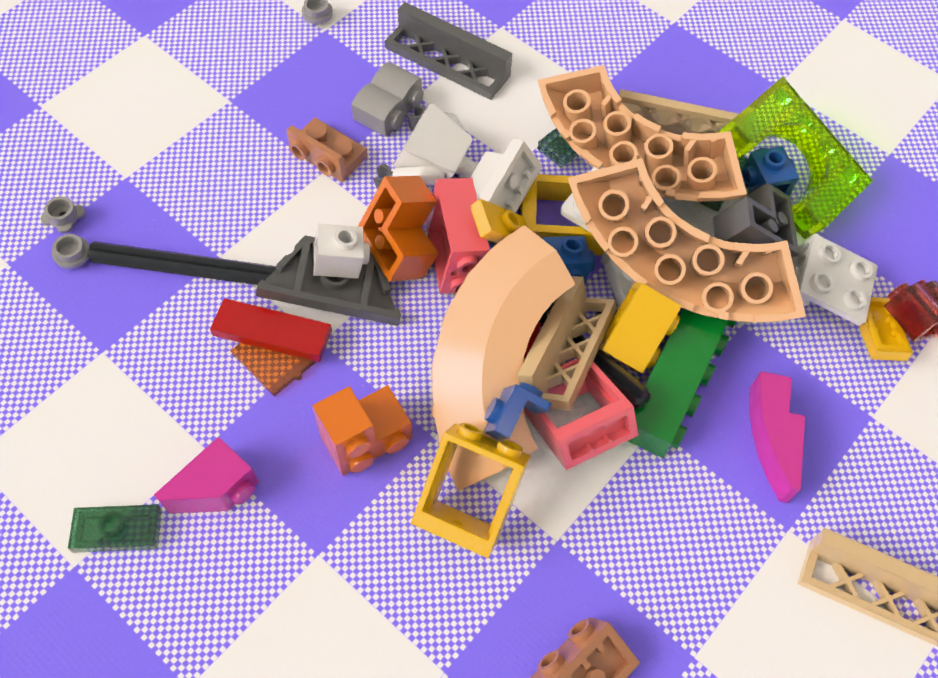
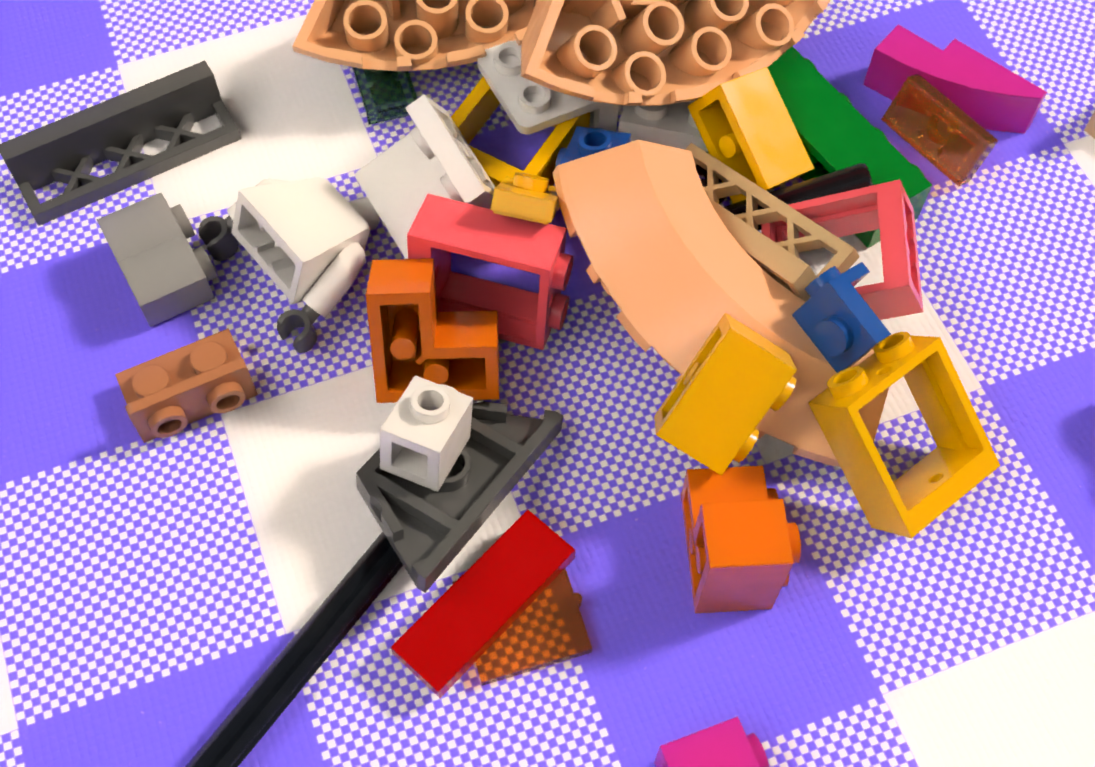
camera: 60 degrees left, 0 degrees up
(431, 373) = (726, 395): none -> yellow brick
(731, 439) = (939, 129): none -> clear orange plate

